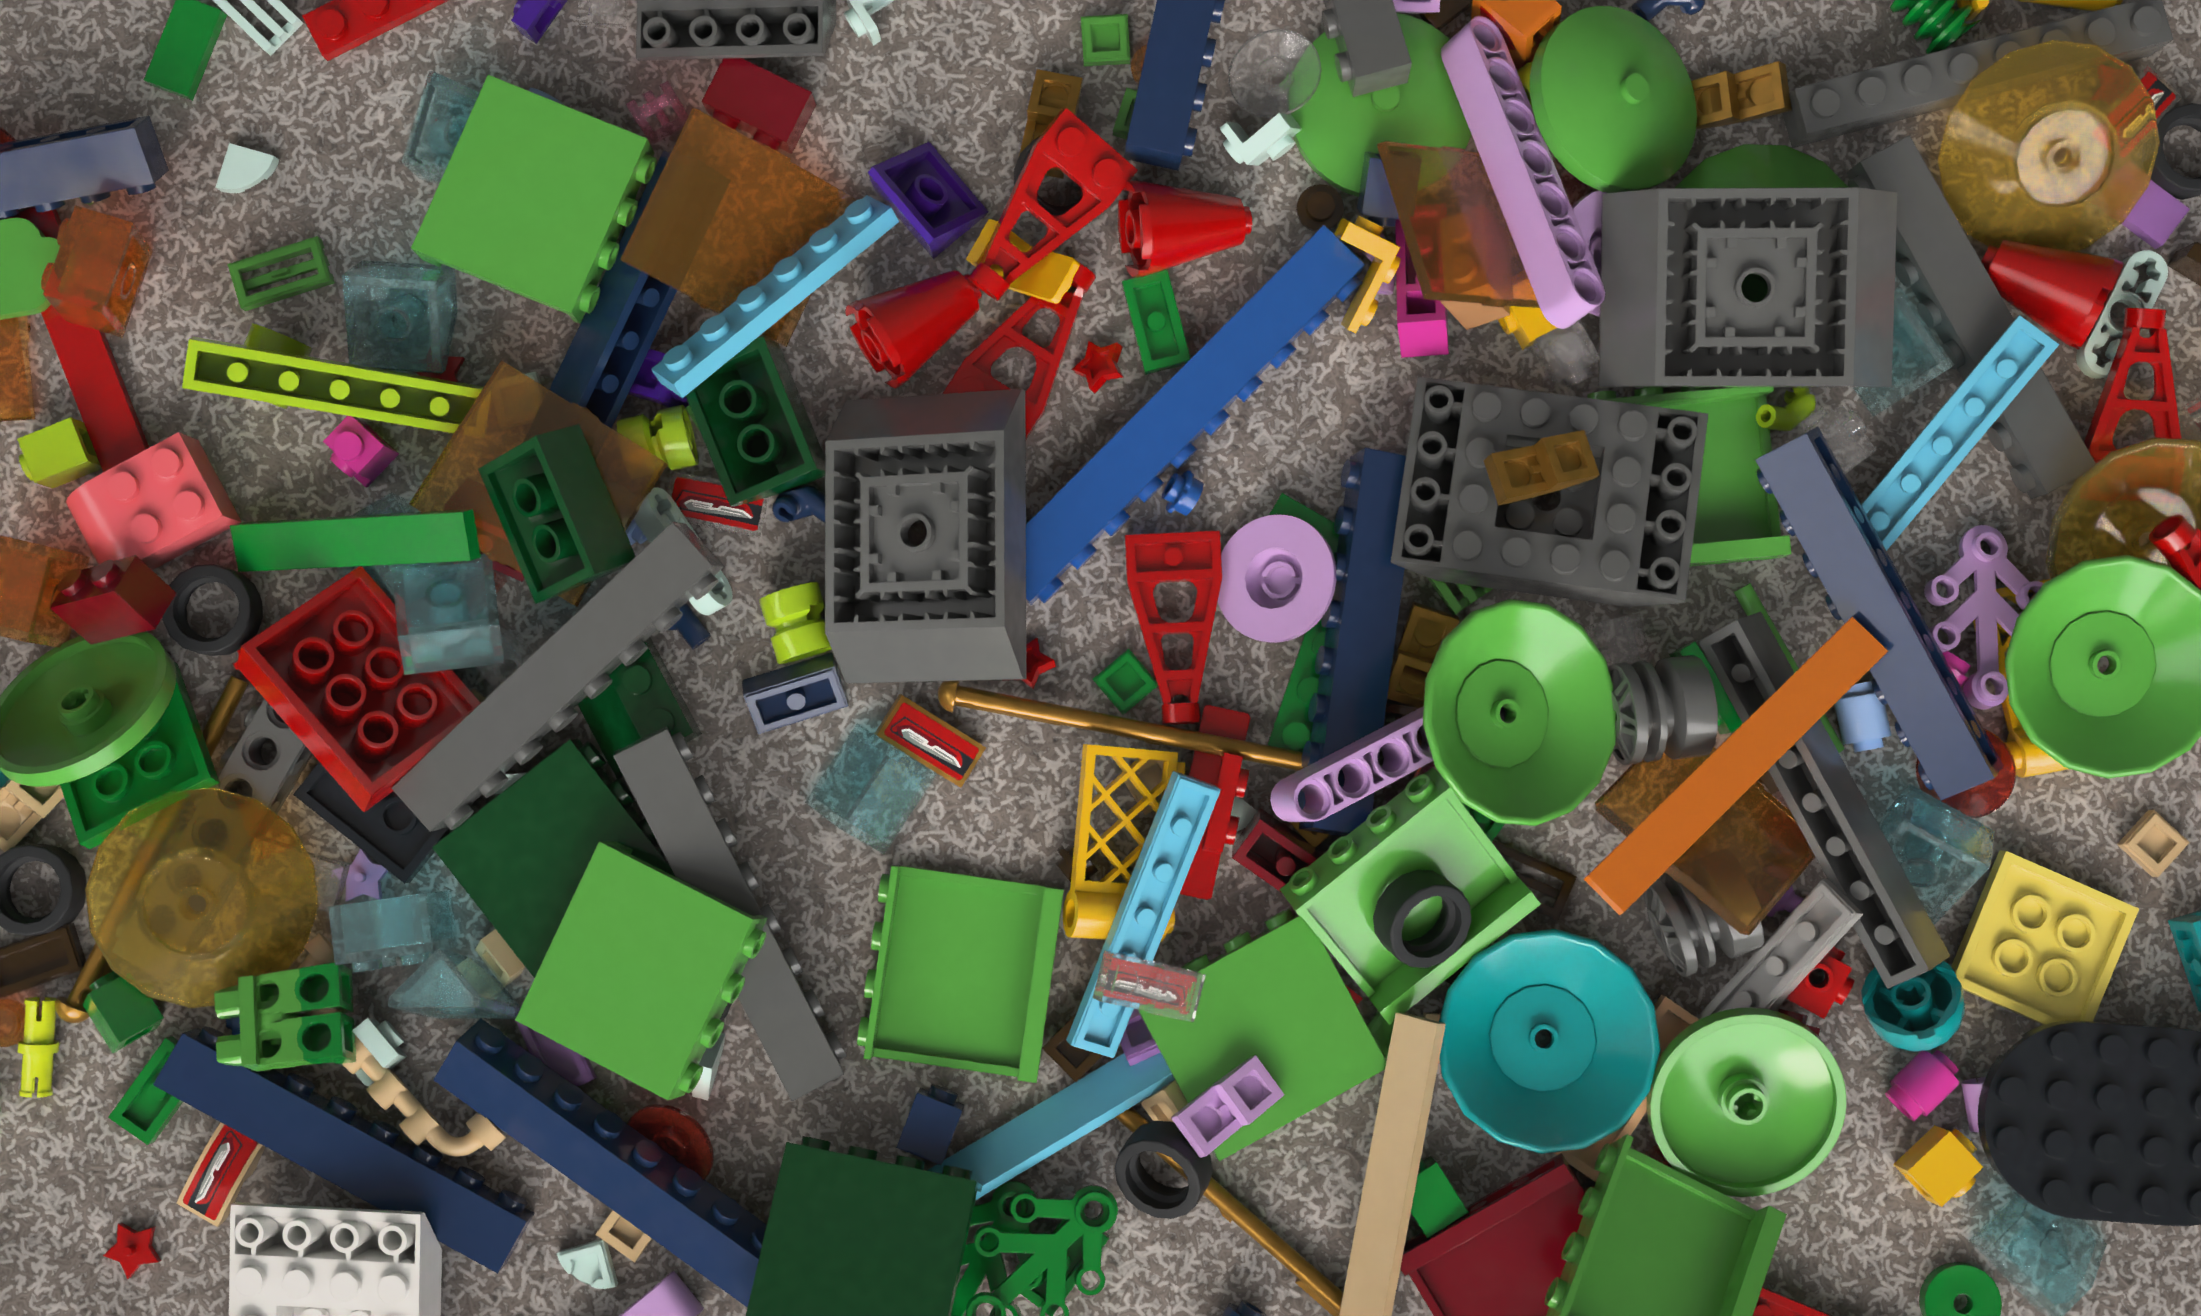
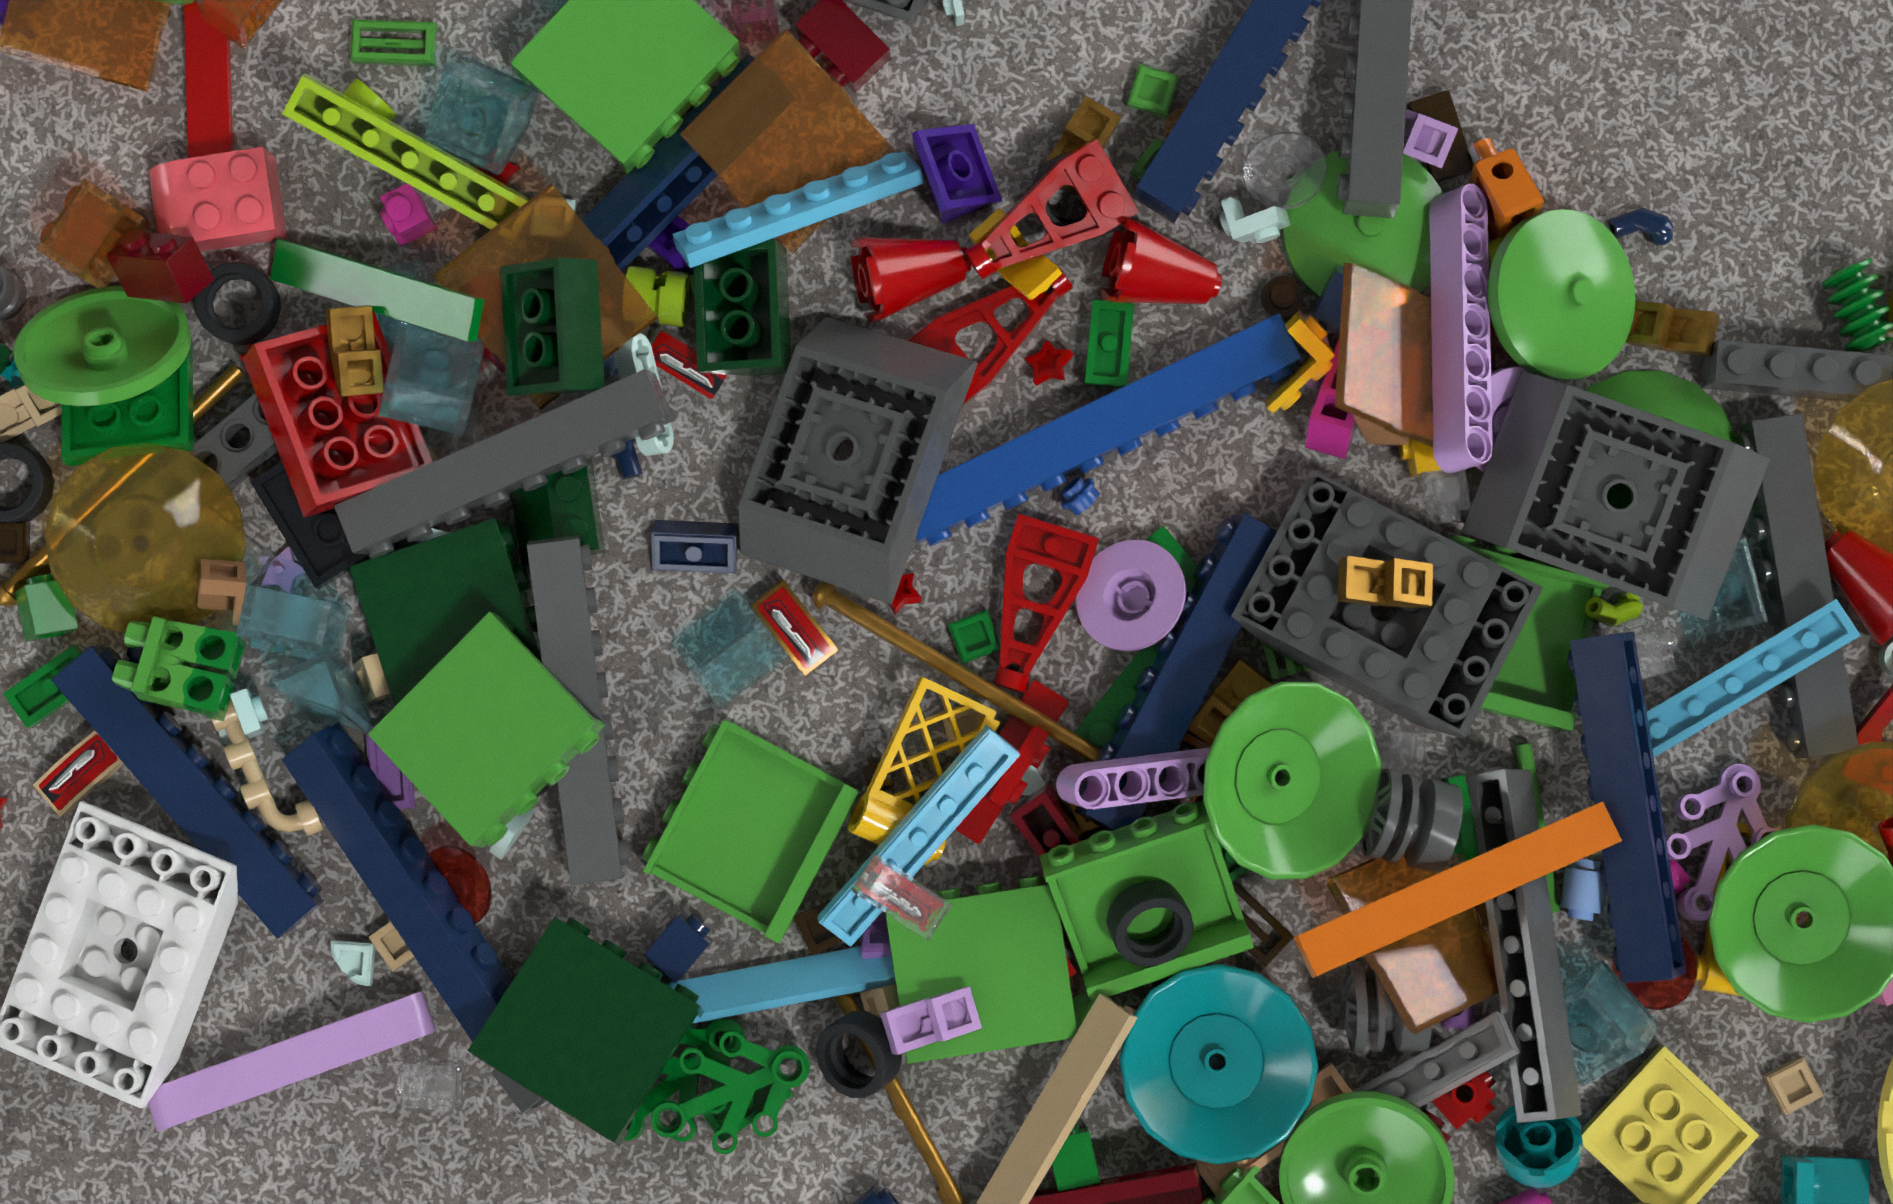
camera: 25 degrees right, 0 degrees up
(58, 453) = (156, 128): lime brick -> none
(302, 918) = (222, 586): none -> medium nougat panel
(352, 614) = (353, 350): none -> pearl gold slope
(797, 622) = (718, 488): lime wheel -> none
(799, 504) = (755, 389): dark blue arm -> none

